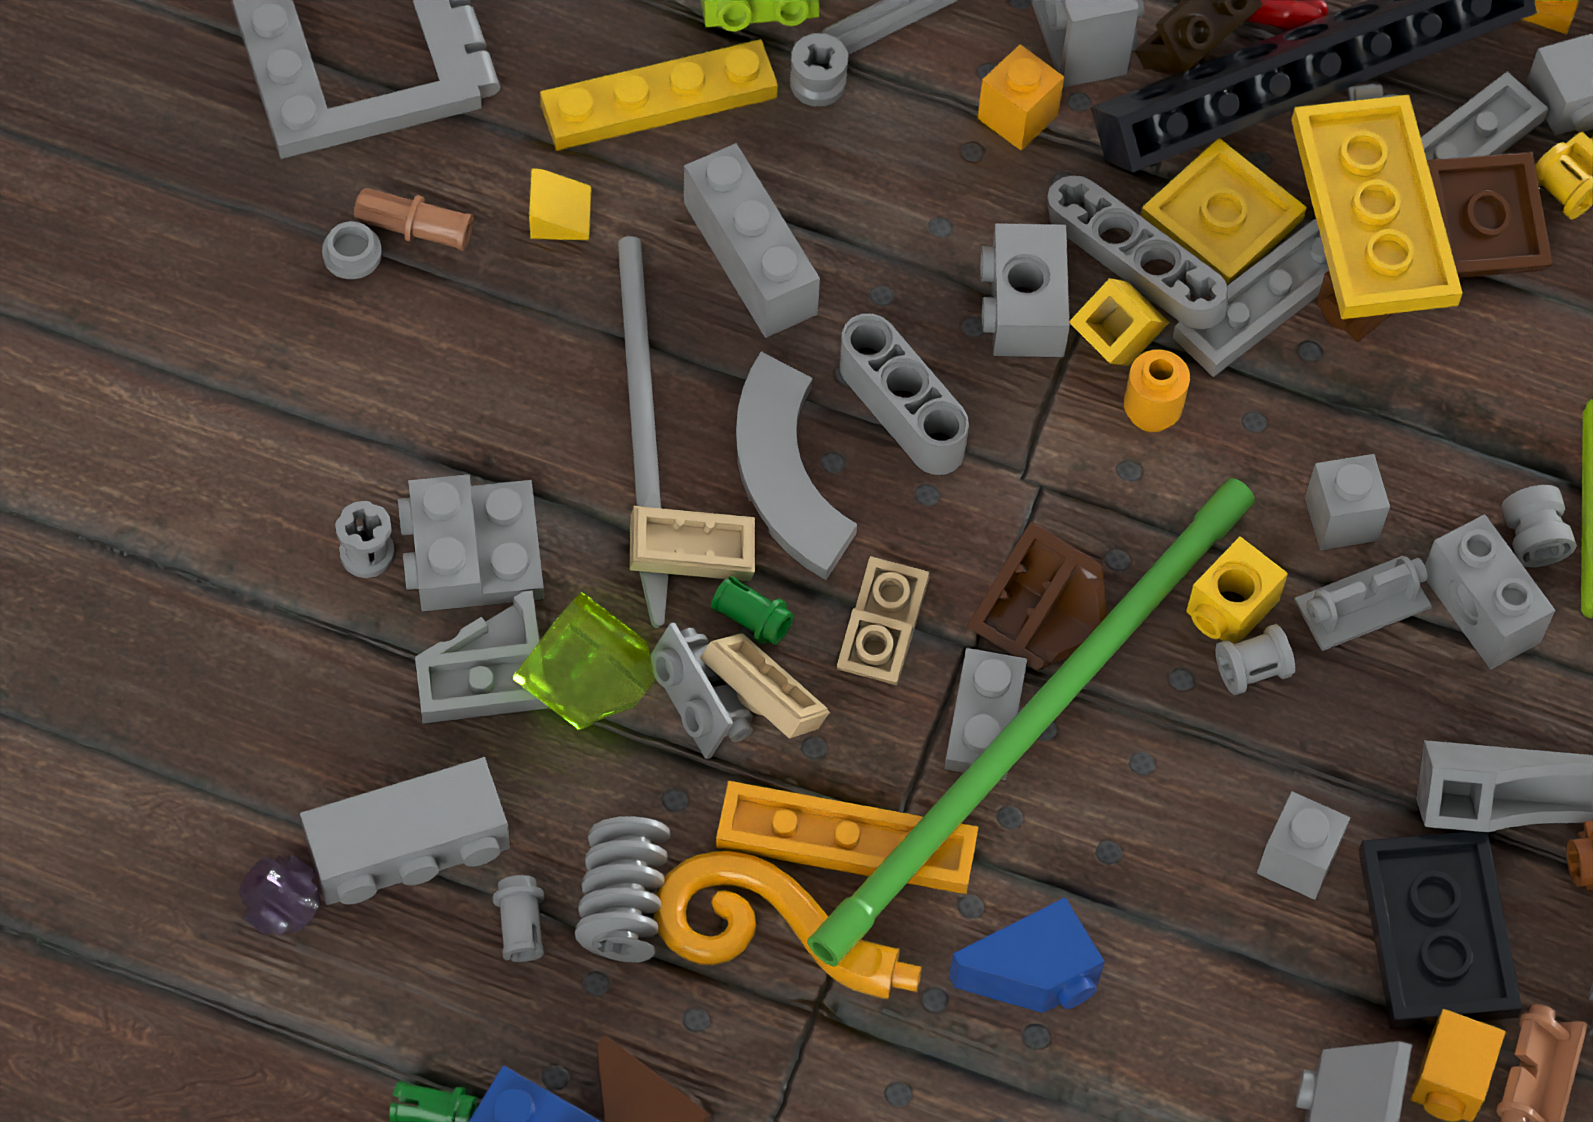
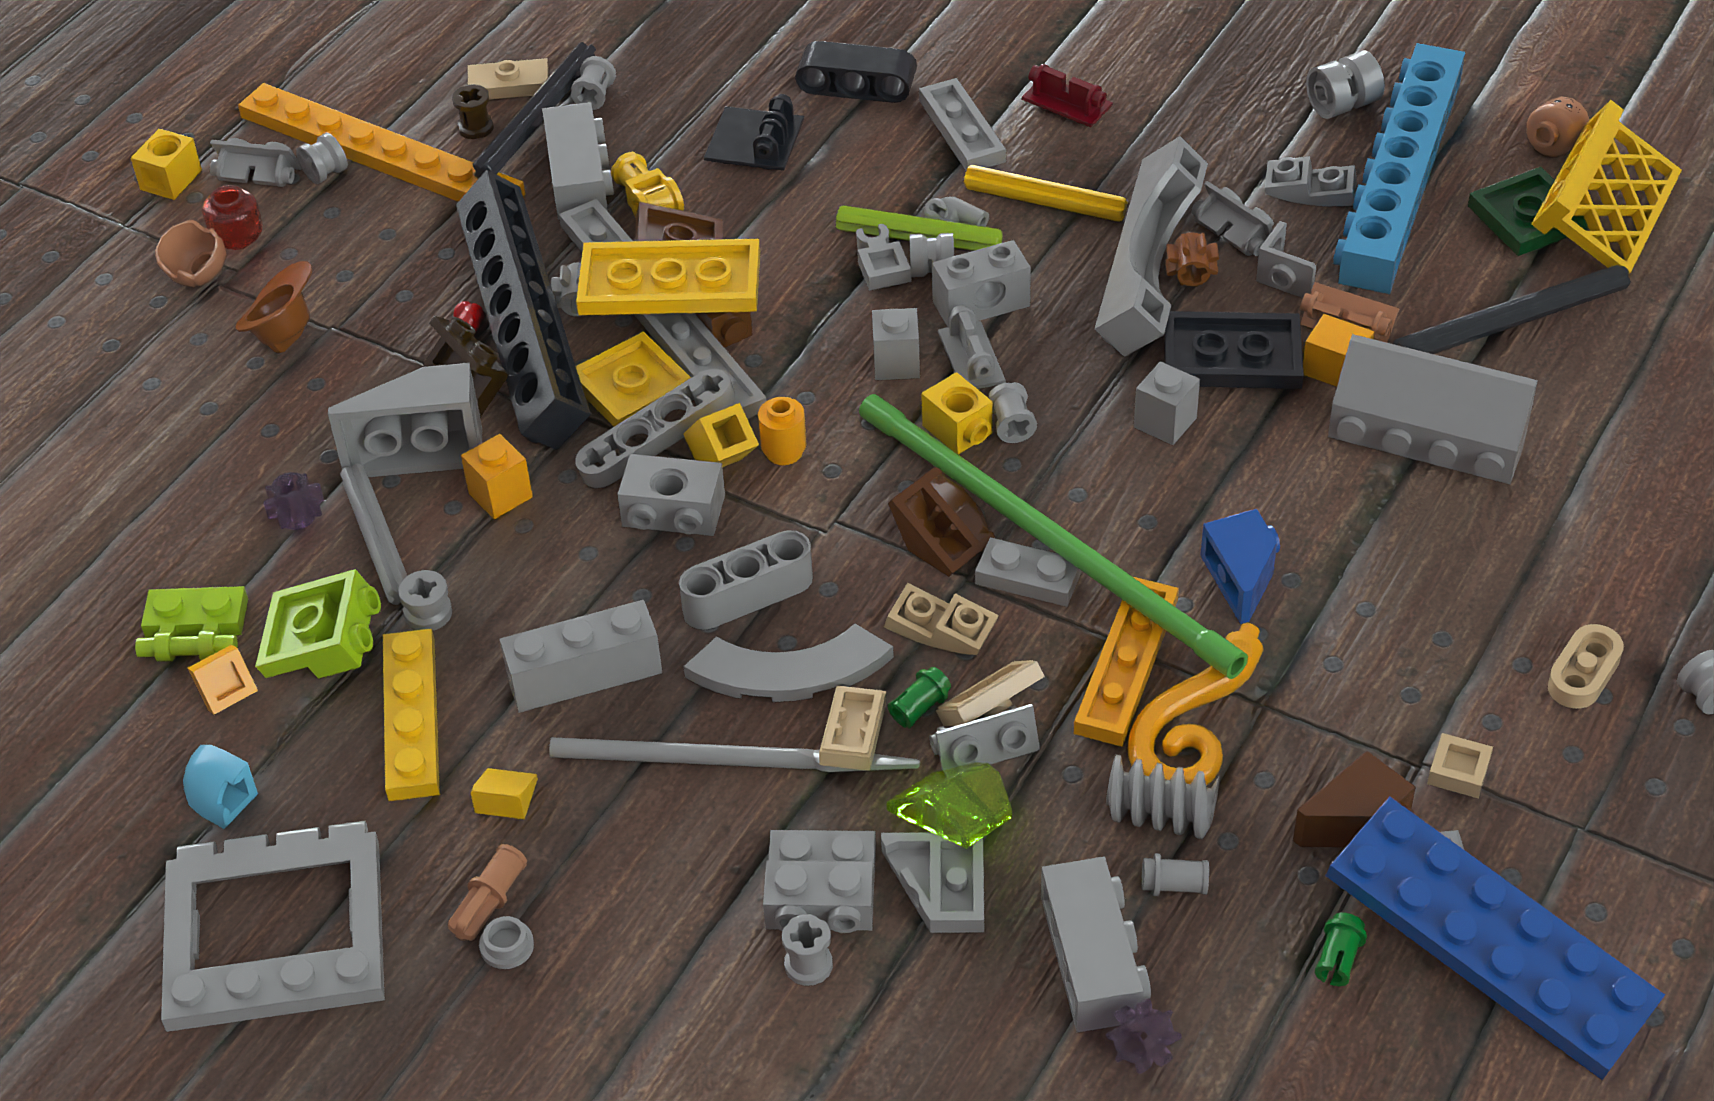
camera: 75 degrees left, 15 degrees down
(1516, 464) = (880, 261): none -> light grey plate

